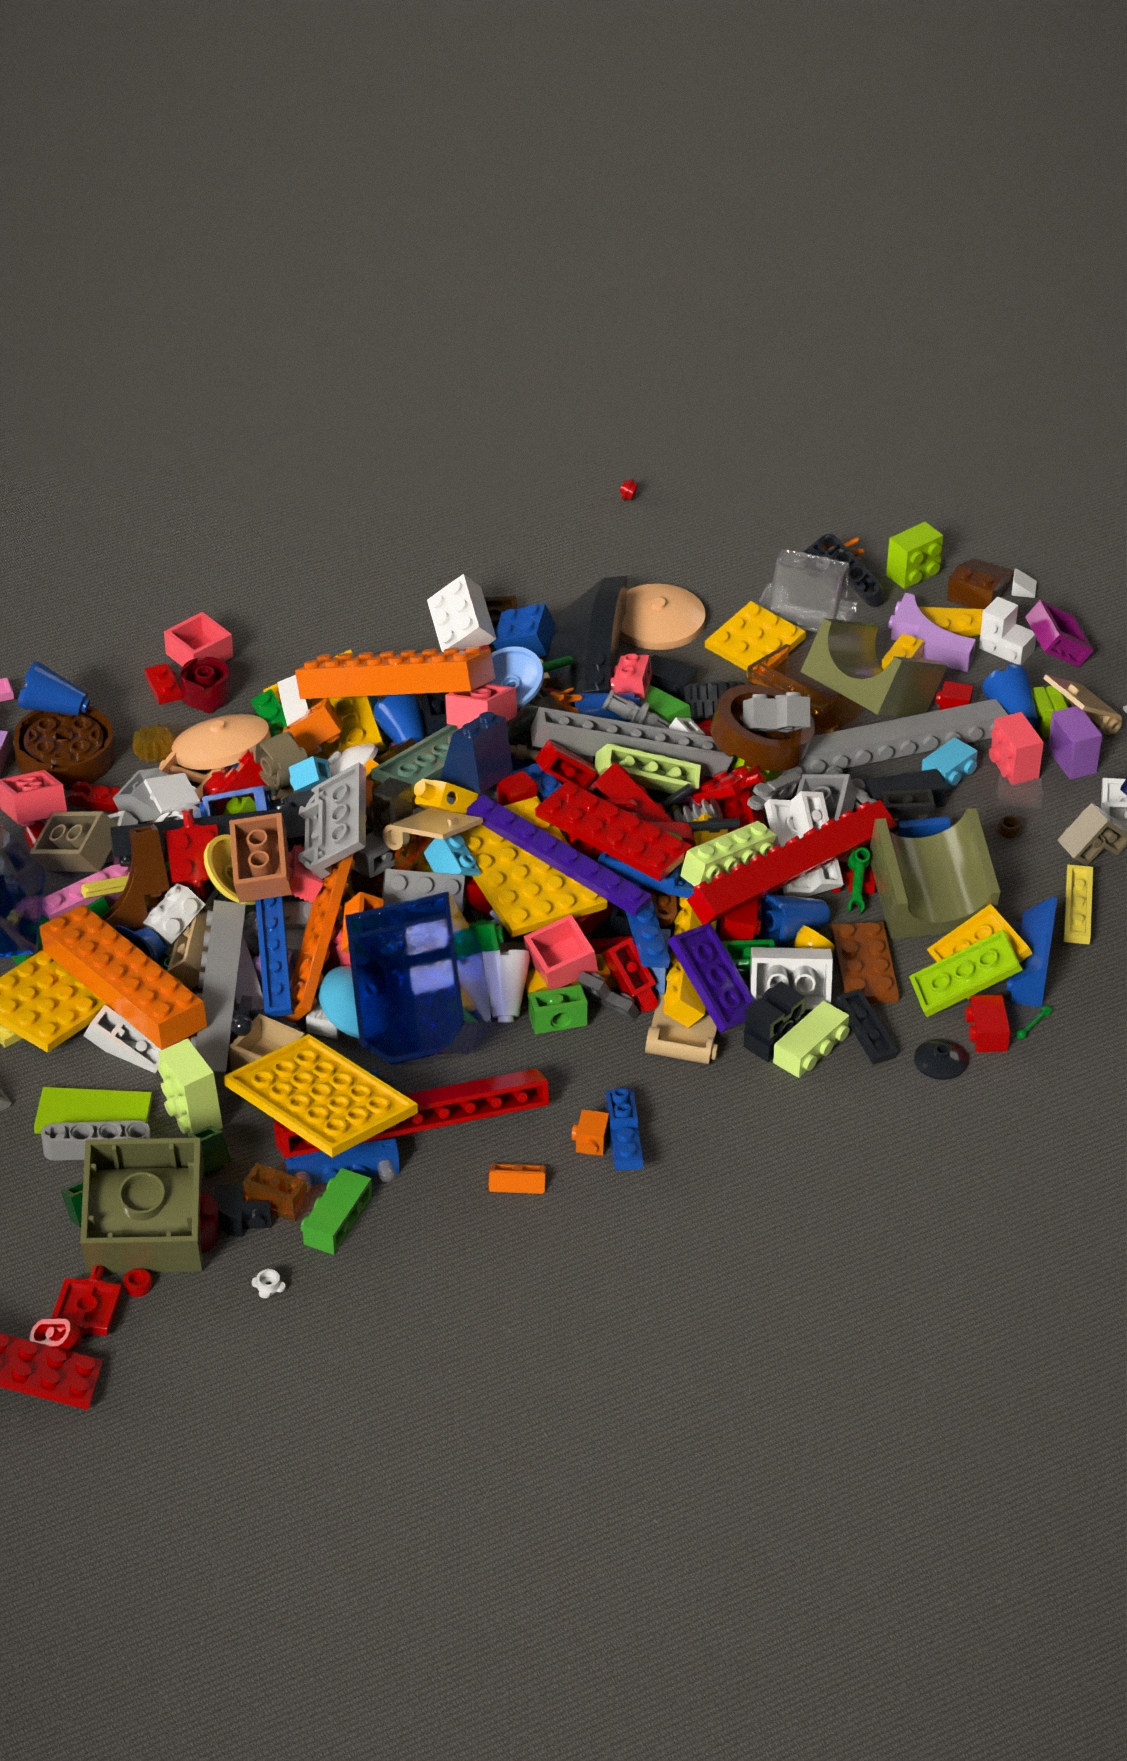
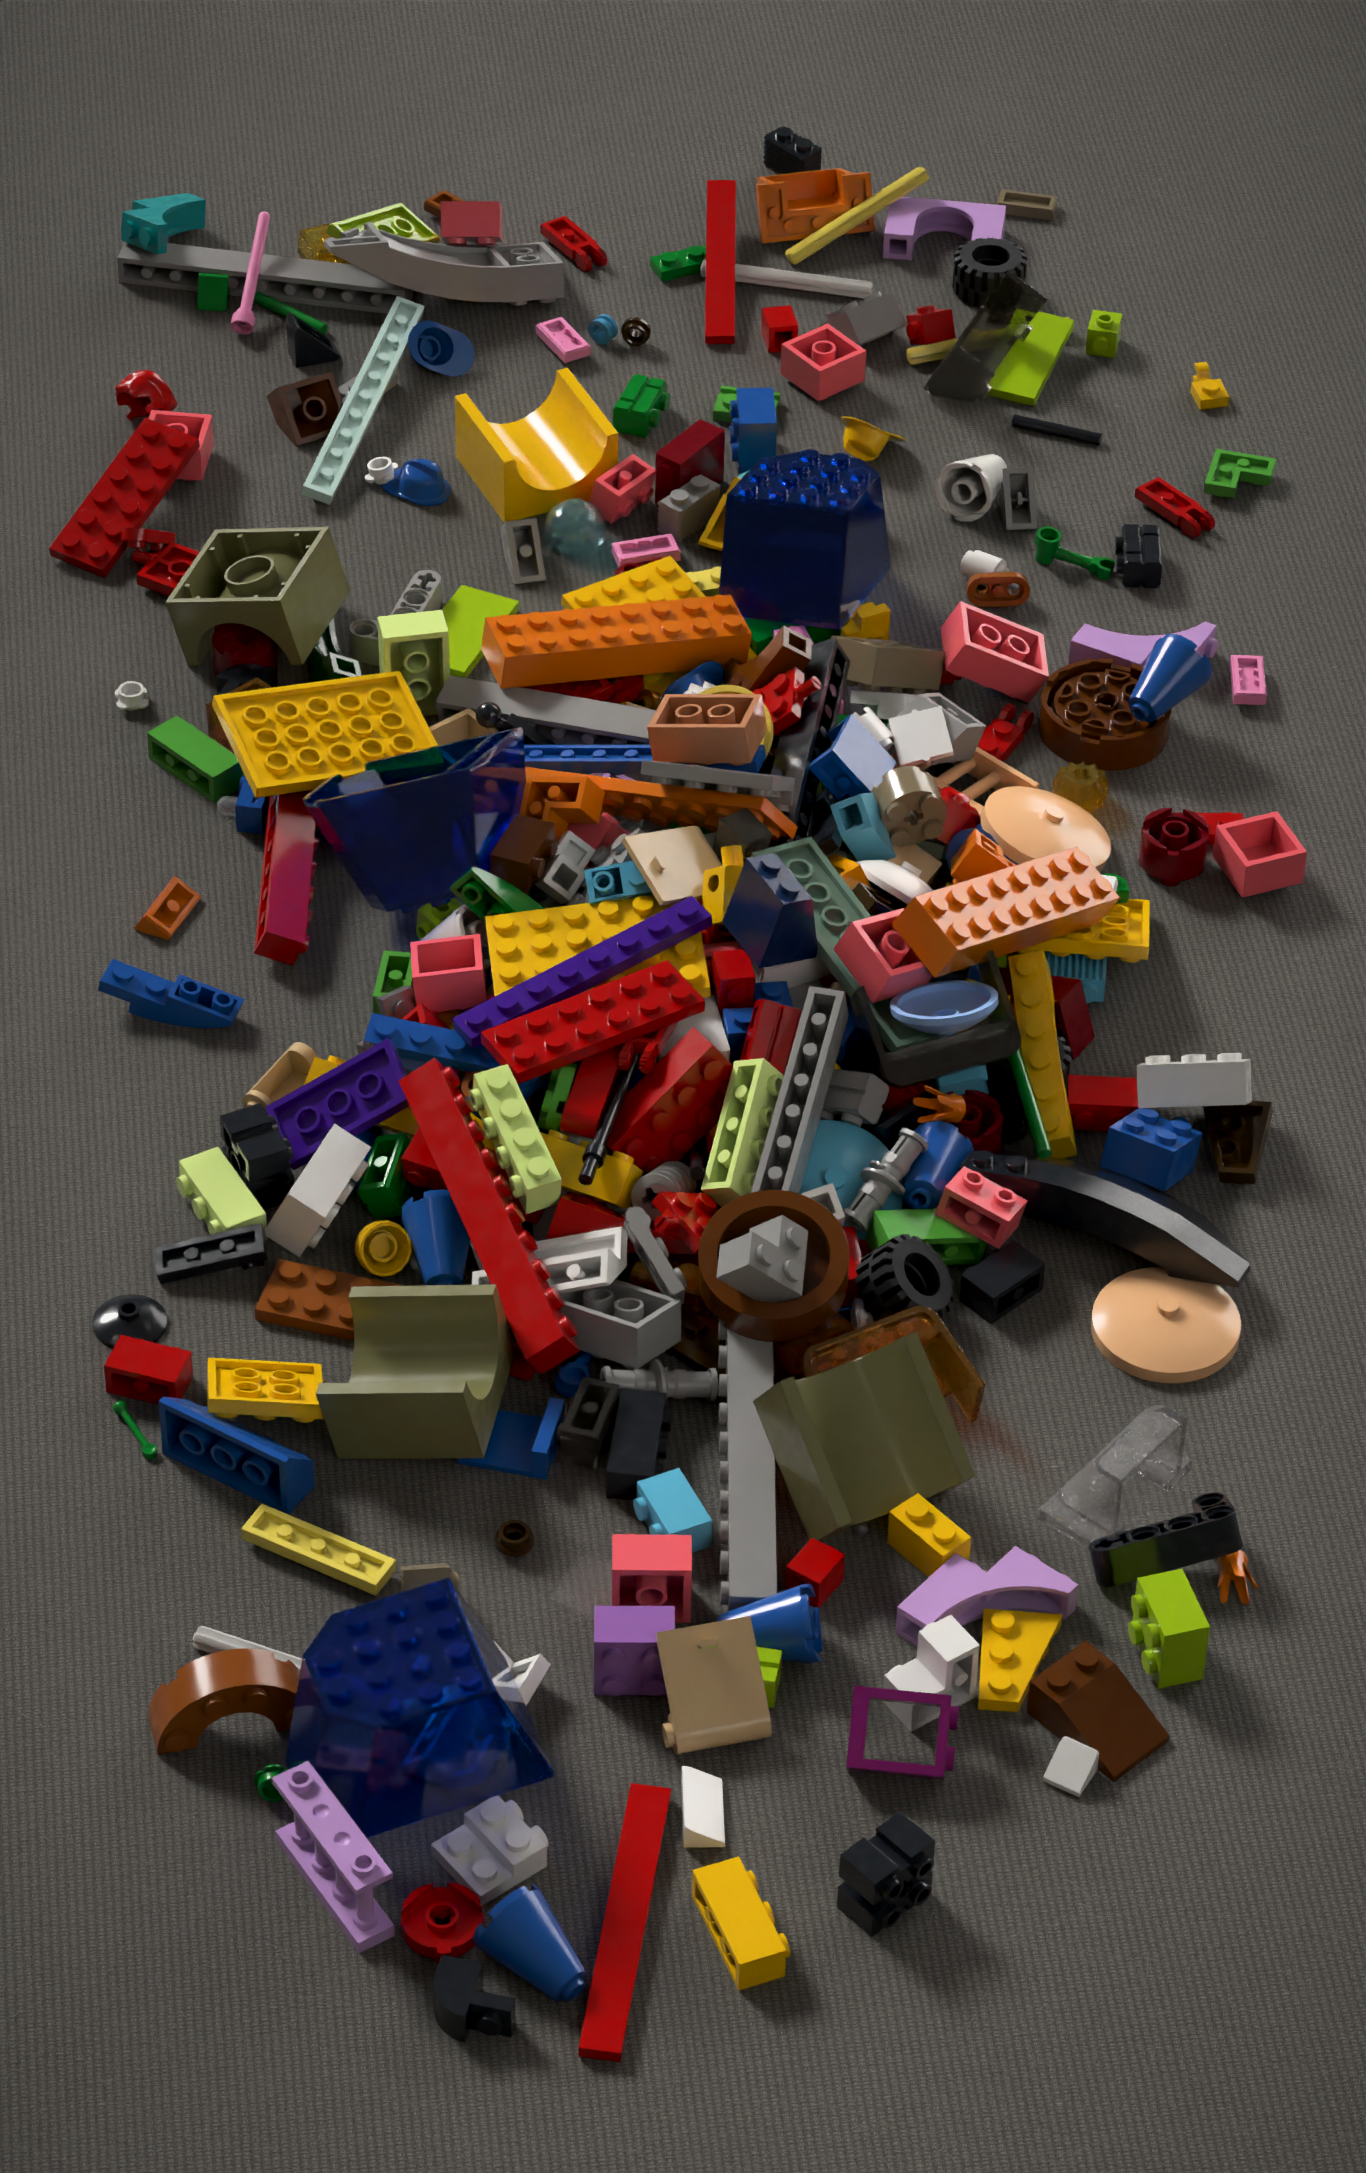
camera: 110 degrees right, 0 degrees up
(591, 1132) = (189, 964): orange brick -> none
(753, 635) = (1059, 1403): yellow plate -> none
(965, 973) = (232, 1359): lime tile -> none

